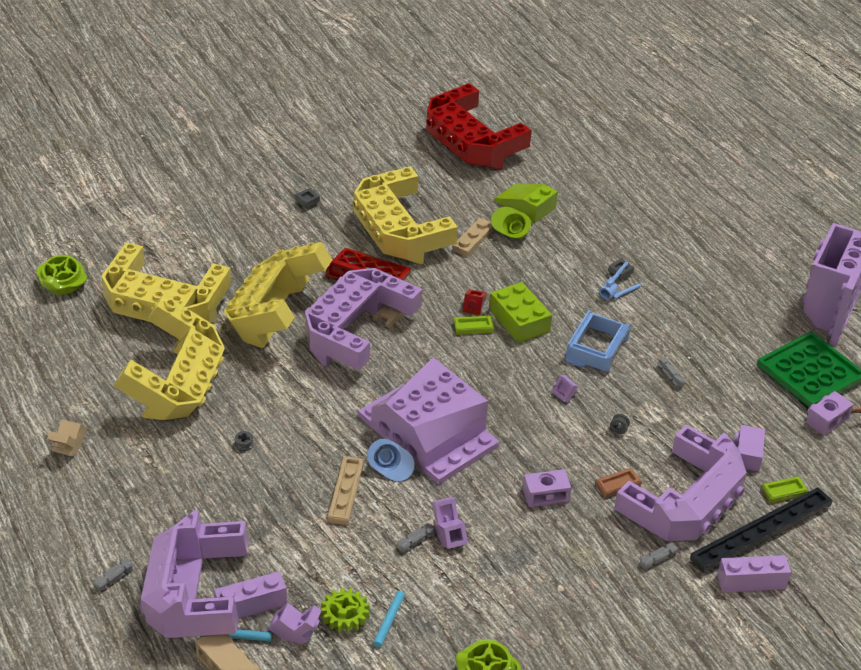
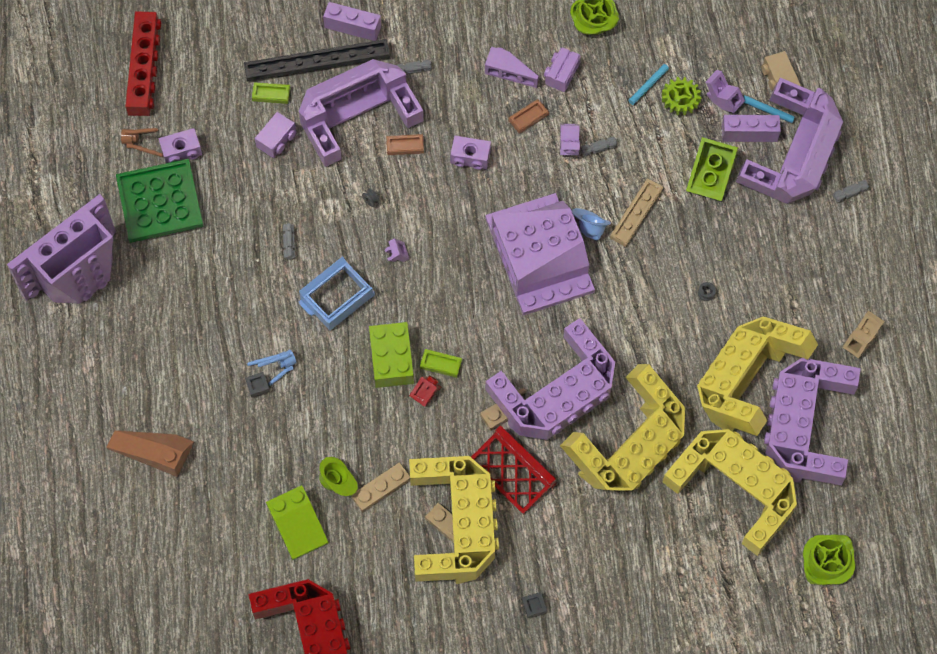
camera: 155 degrees left, 25 degrees up
(122, 341) = (793, 418): none -> lavender wedge
(279, 549) = (712, 169): none -> lime slope
(494, 597) = (562, 69): none -> lavender brick
(506, 546) = (528, 116): none -> nougat tile
(556, 581) = (506, 66): none -> lavender slope
(665, 211) = (157, 450): none -> nougat wedge

